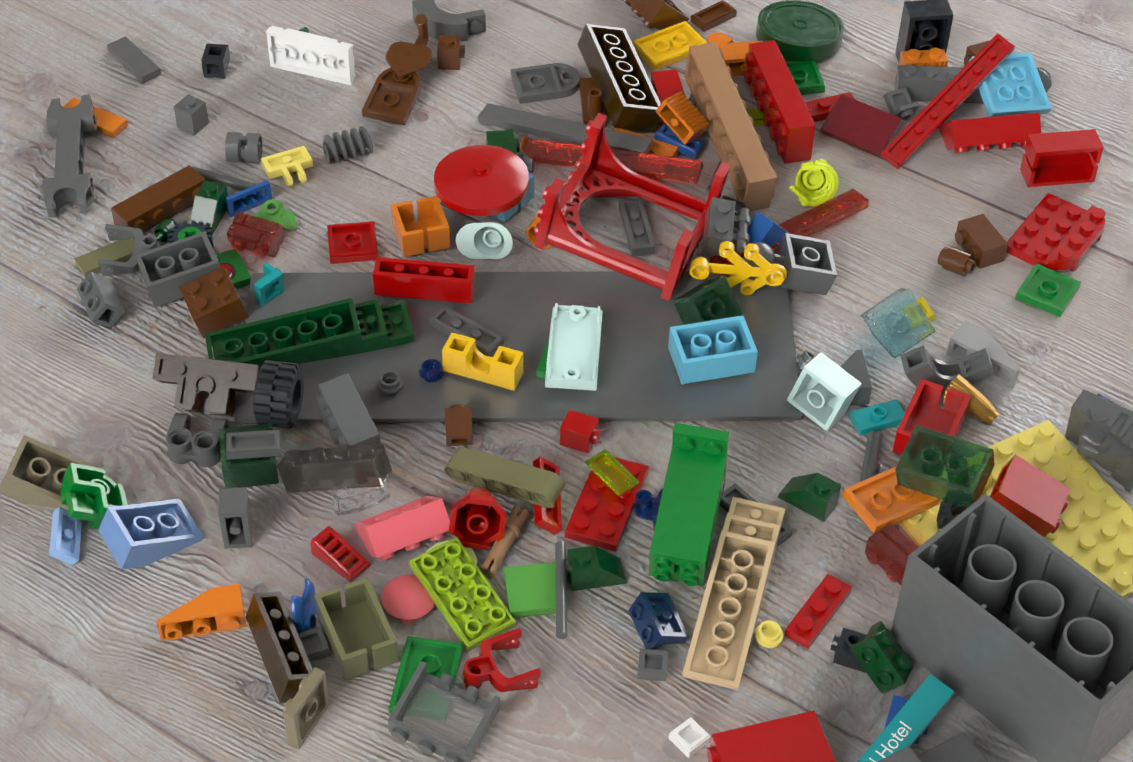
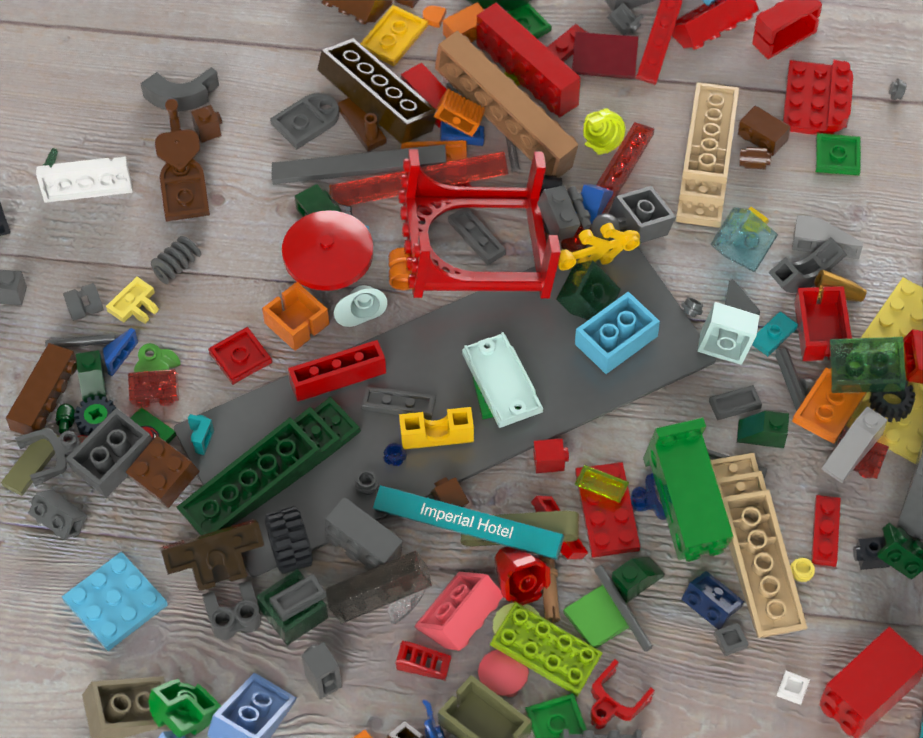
camera: 25 degrees left, 10 degrees up
(102, 391) = (114, 601): none -> medium azure plate
(458, 450) = (469, 522): none -> teal tile
(798, 461) = (735, 402): none -> dark grey tile
(892, 536) = (855, 444): none -> light grey slope
(909, 241) = (707, 155): none -> tan slope

